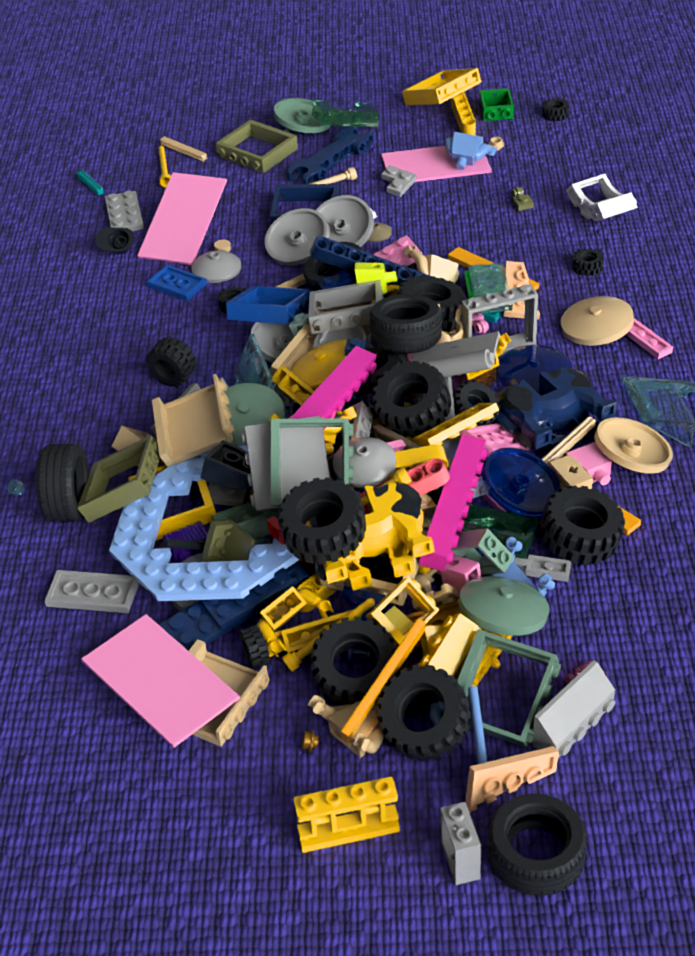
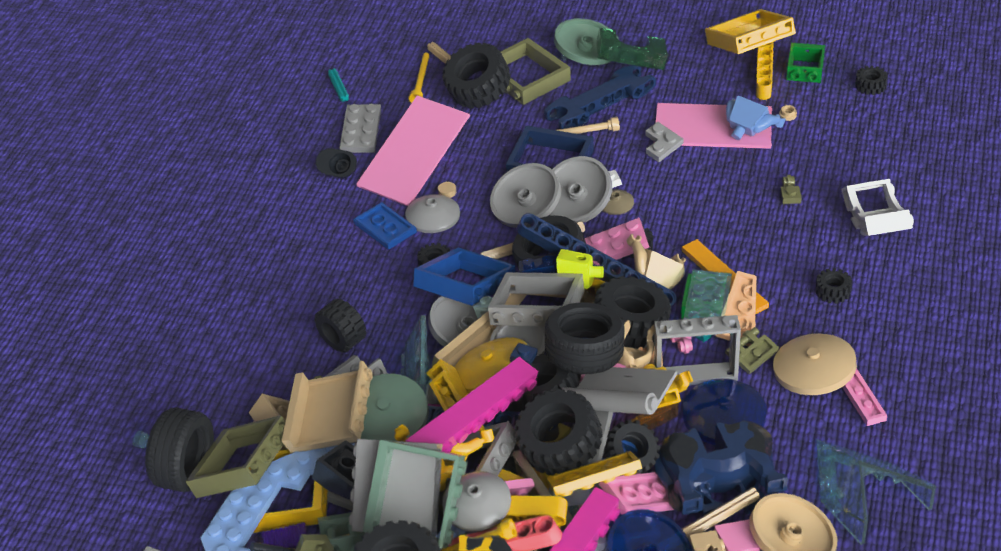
camera: 15 degrees right, 0 degrees up
(214, 139) = (482, 89): none -> black tyre
(546, 320) = (757, 353): none -> olive plate

